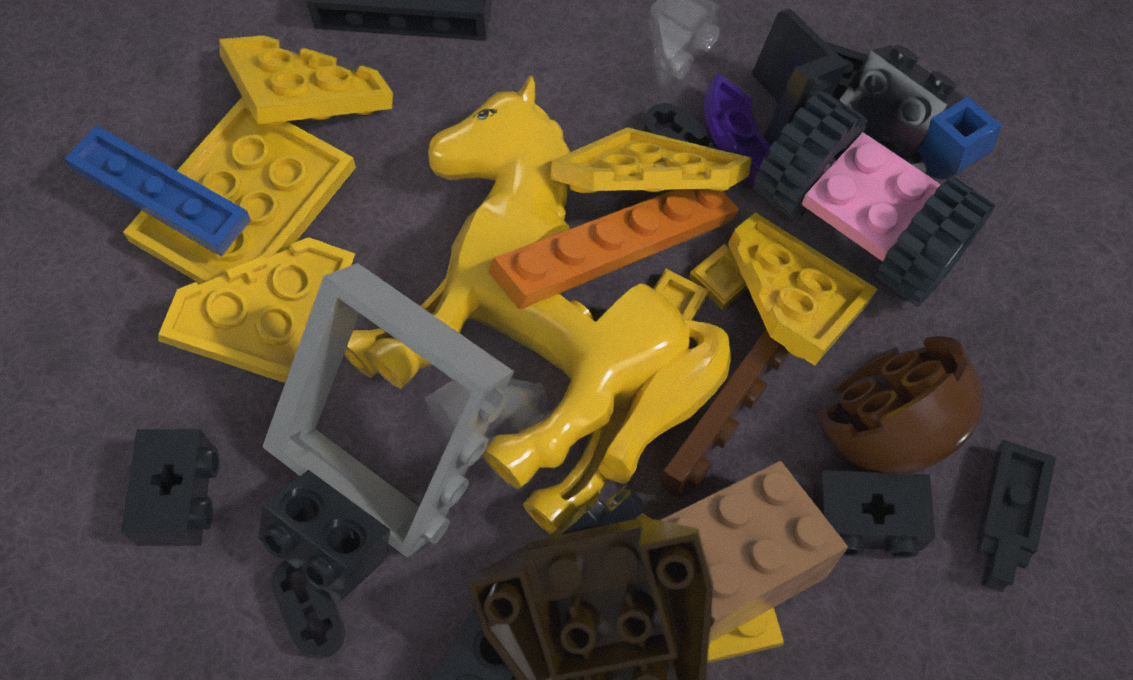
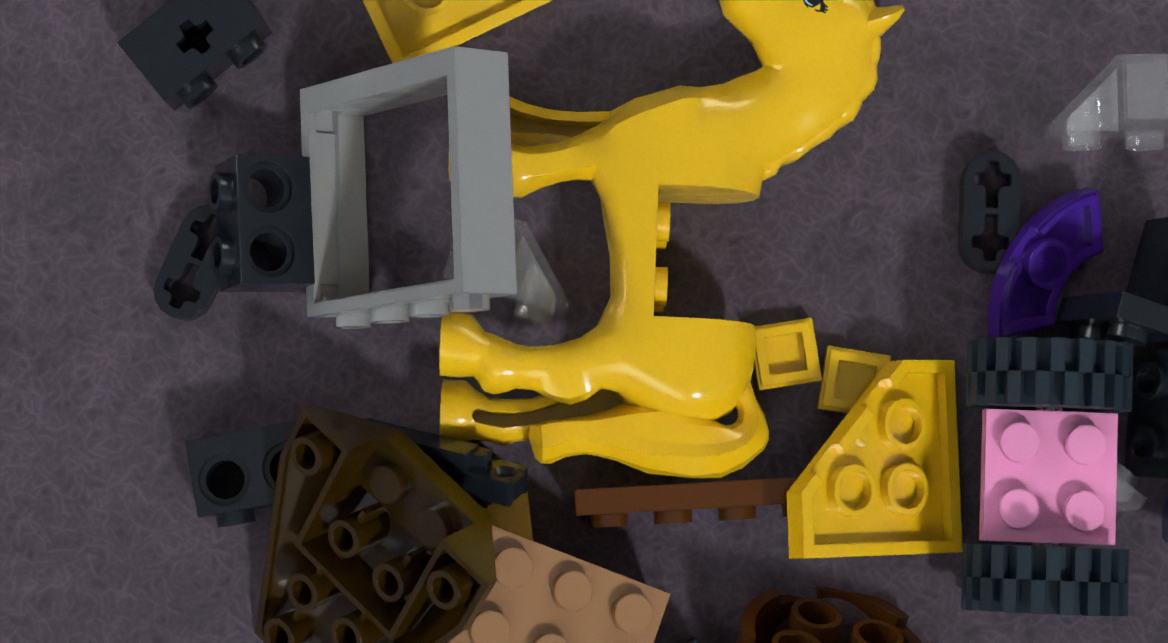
camera: 55 degrees right, 20 degrees up
(608, 243) = (778, 256): orange plate -> none
(648, 163) = (904, 212): yellow plate -> none

